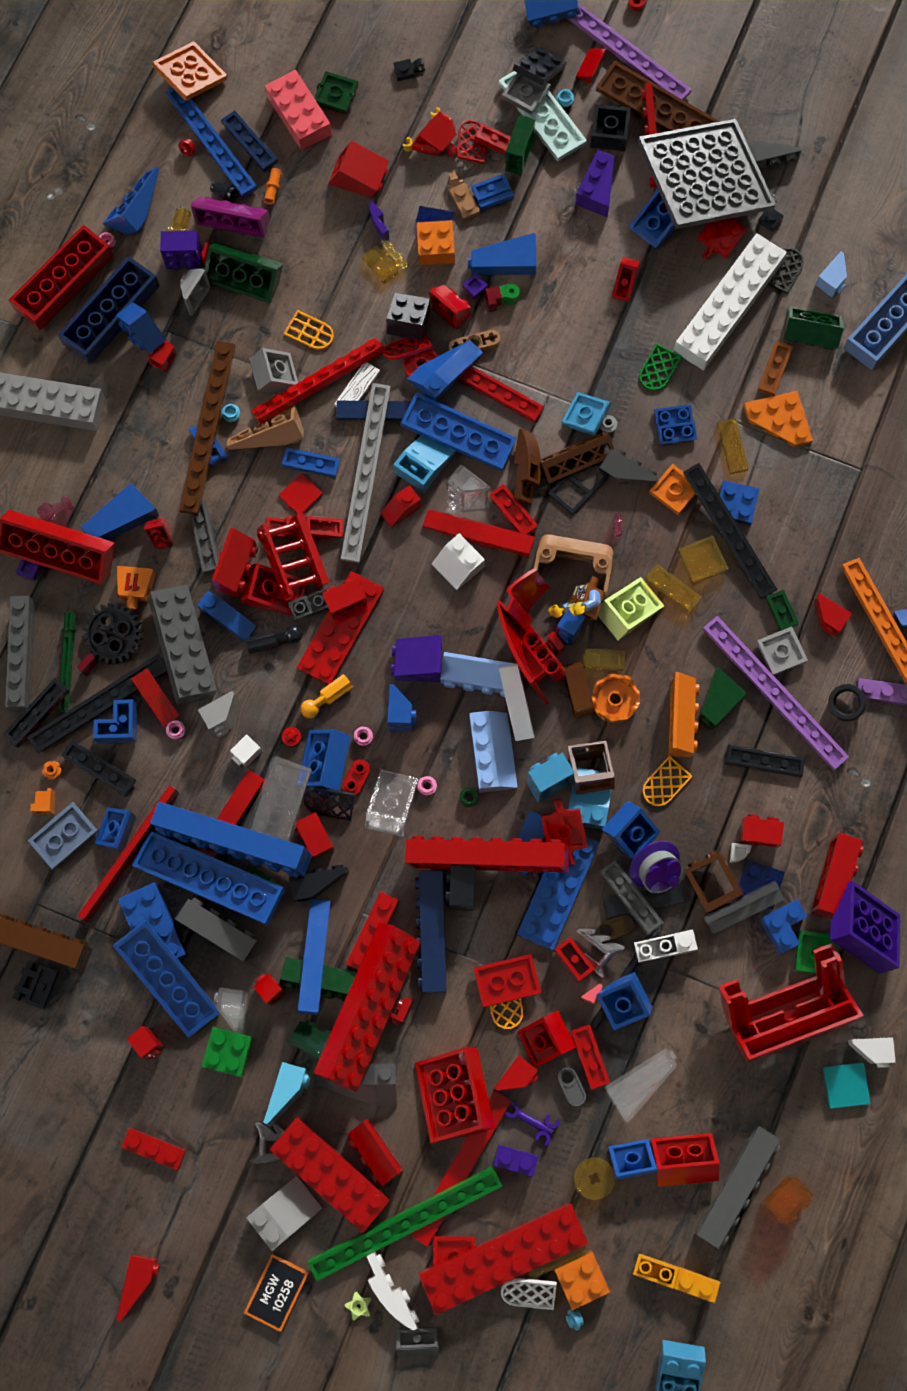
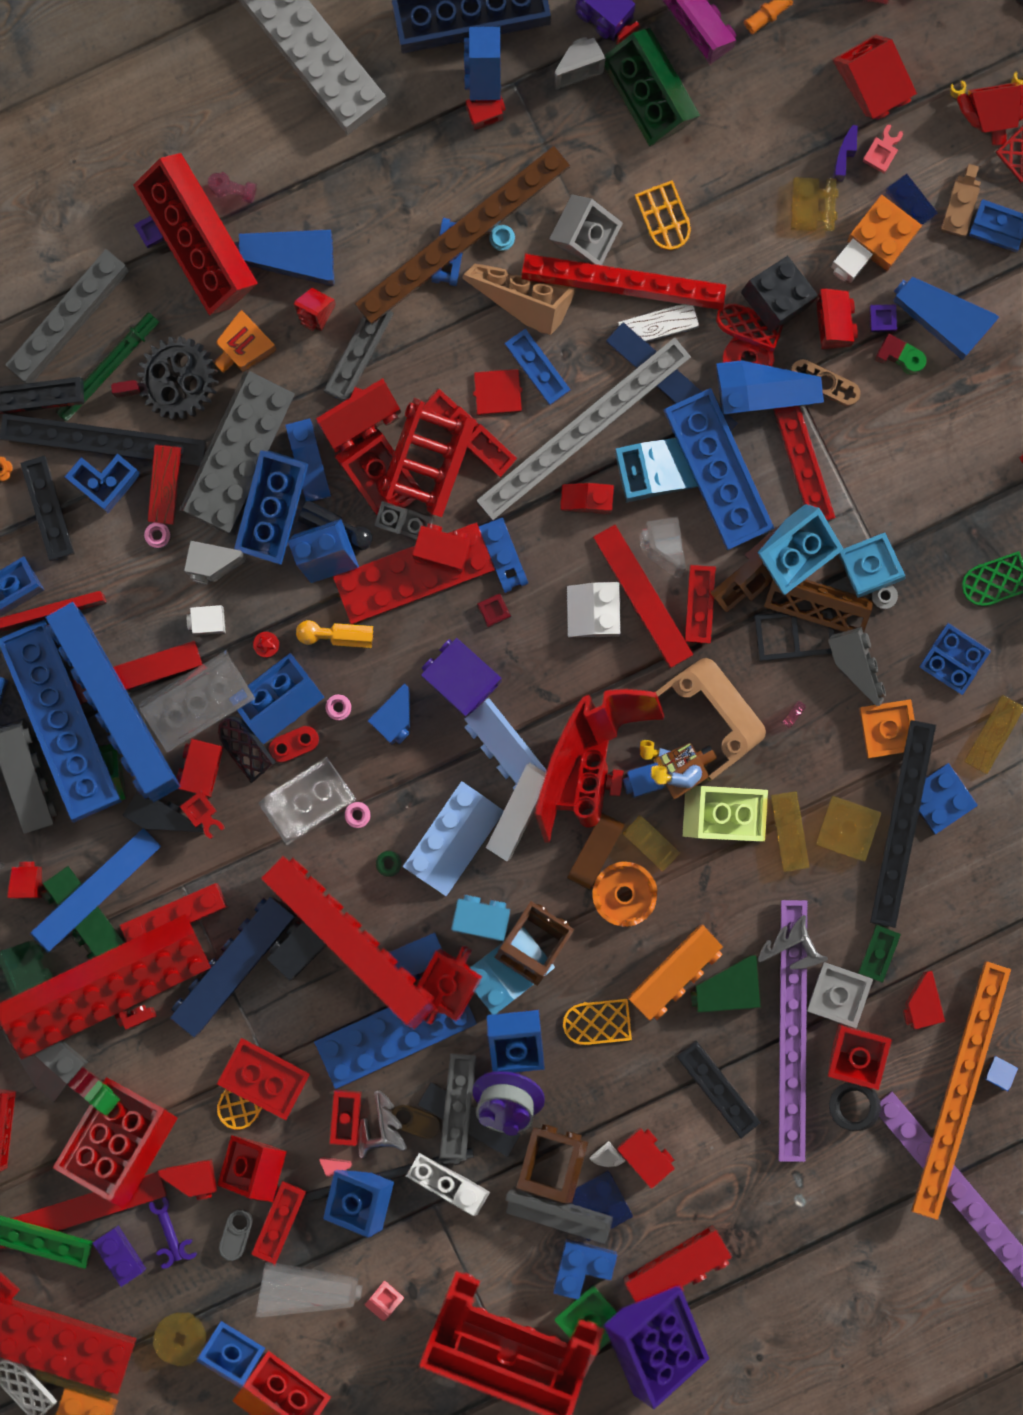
camera: 40 degrees right, 10 degrees up
(228, 654) = (271, 506): none -> blue slope
(279, 656) = (323, 551): none -> blue slope
(336, 858) = (200, 812): none -> red plate
(381, 576) = (503, 554): none -> blue plate
(396, 205) = (881, 152): none -> coral plate
(403, 610) = (493, 610): none -> dark red tile
(415, 1075) = (94, 1091): none -> leg
(431, 271) = (851, 261): none -> white brick
(540, 431) = (799, 547): none -> dark azure slope
(690, 1048) = (384, 1301): none -> coral slope
(729, 638) = (797, 934): none -> flat silver piece
(824, 672) = (859, 1056): none -> red slope

